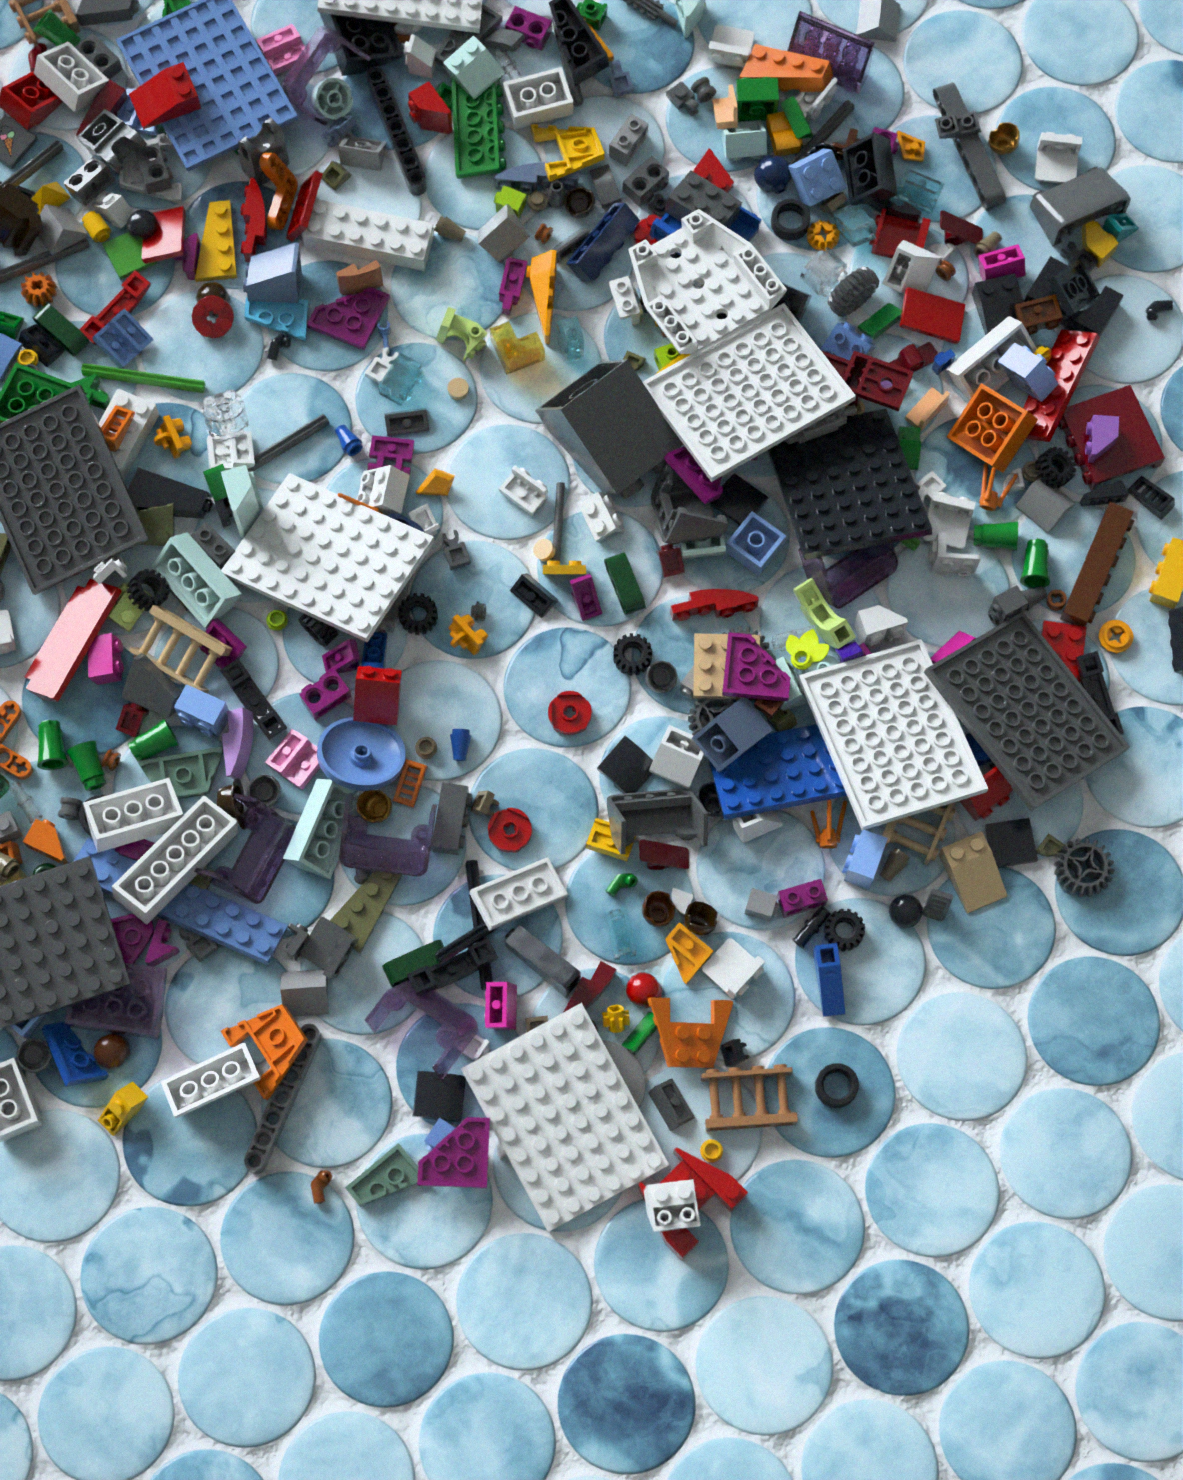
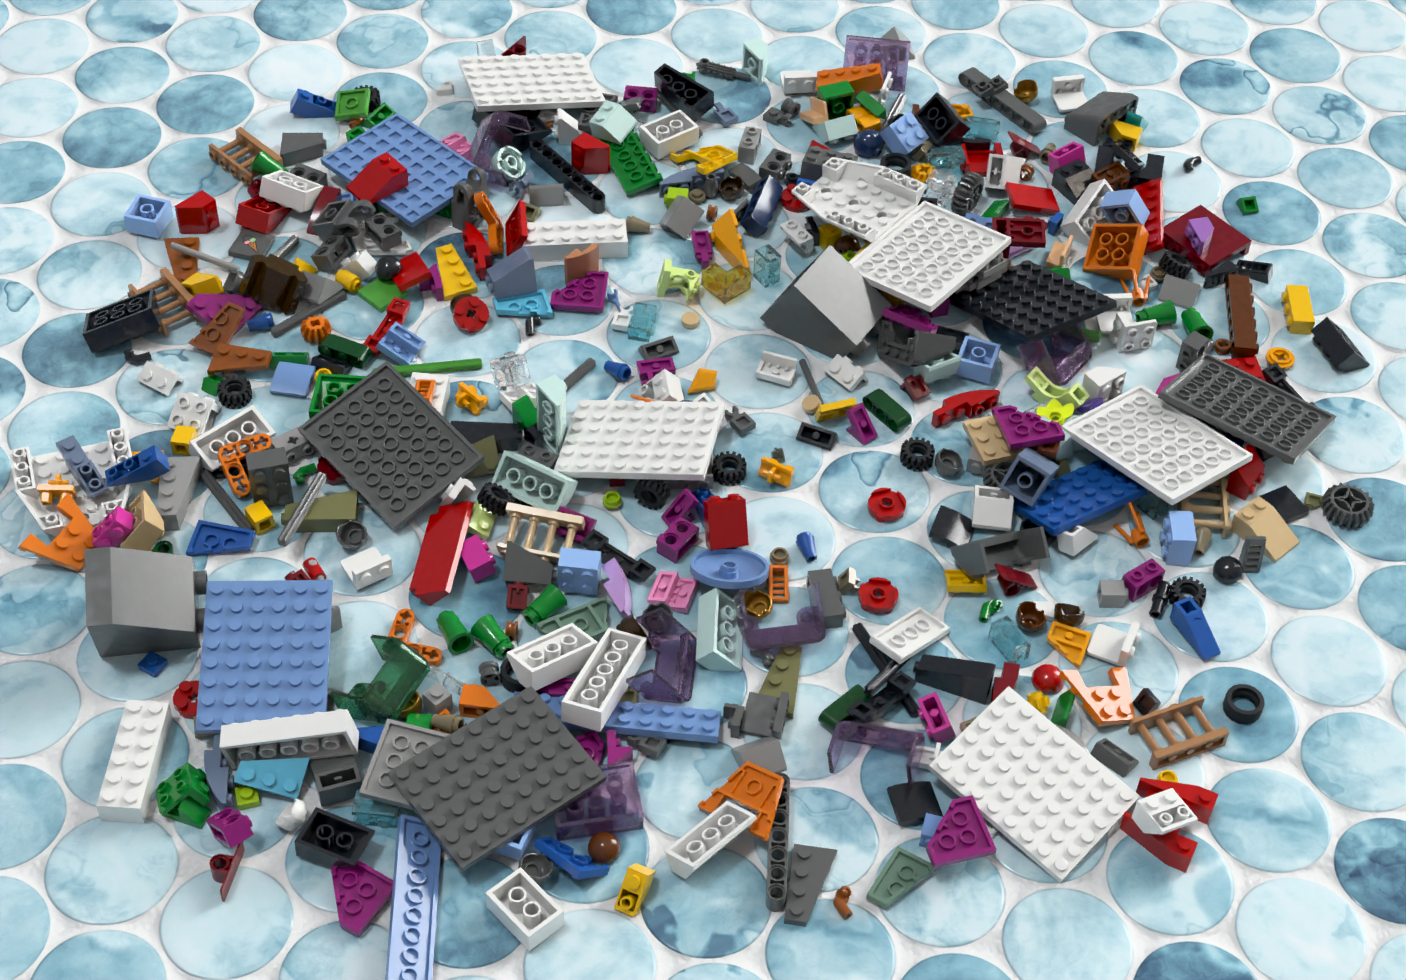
camera: 20 degrees left, 25 degrees down
(297, 1146) = (807, 876): none -> dark grey wing

